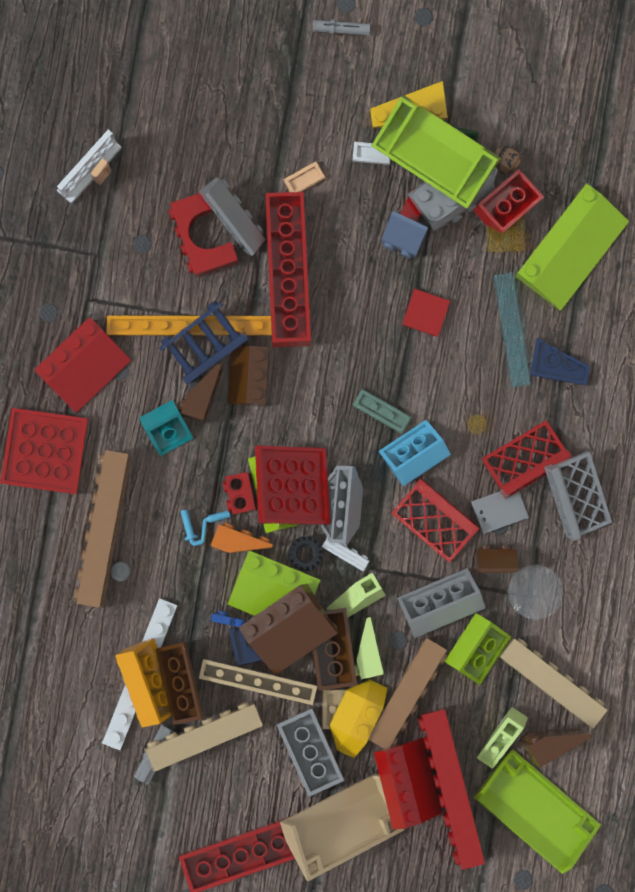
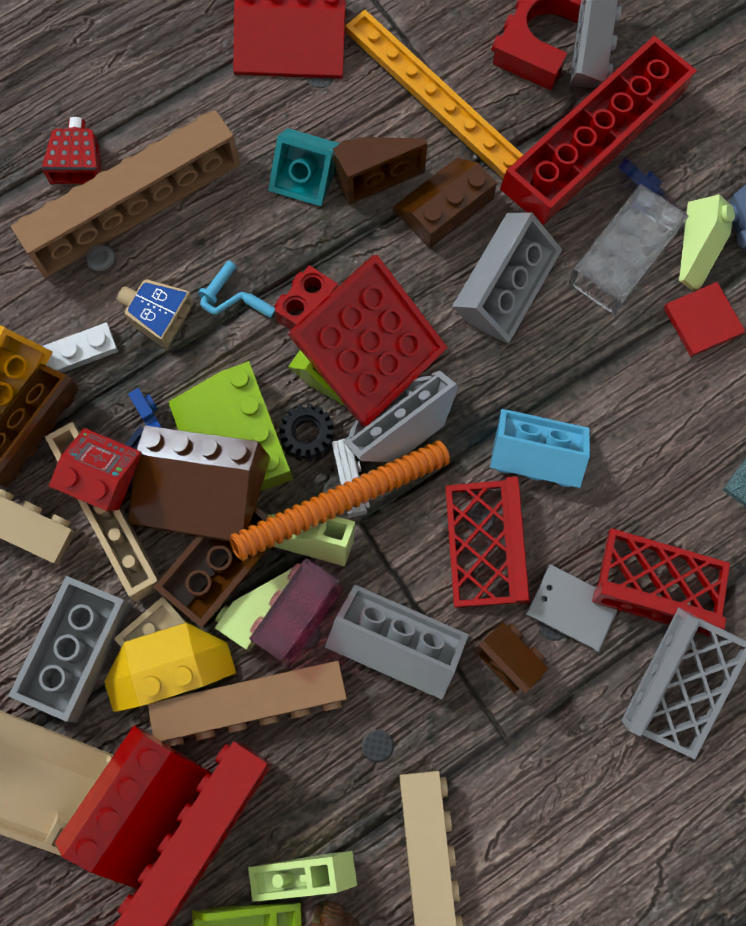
camera: 50 degrees right, 10 degrees down
(44, 451) = (161, 74): red plate -> none
(50, 535) = (72, 154): none -> red torso
(175, 569) = (156, 309): none -> torso
(220, 348) = (443, 143): dark blue fence -> none
(233, 541) = (244, 342): orange slope -> none
(242, 668) = (96, 470): none -> red slope
(304, 178) = (711, 75): light nougat tile -> none
(318, 385) = (508, 276): none -> light grey slope
(332, 270) = (650, 180): none -> clear blue plate
(357, 569) = (337, 501): none -> orange piece
(359, 315) = (627, 249): none -> clear brick
(381, 411) = (549, 372): sand green tile -> none
(388, 273) = (704, 238): none -> yellowish green slope
(388, 637) = (296, 612): none -> clear pink slope
(476, 424) = (642, 487): clear yellow plate -> none
(477, 648) = (384, 738): lime slope -> none
(535, 592) = (519, 745): clear piece -> none

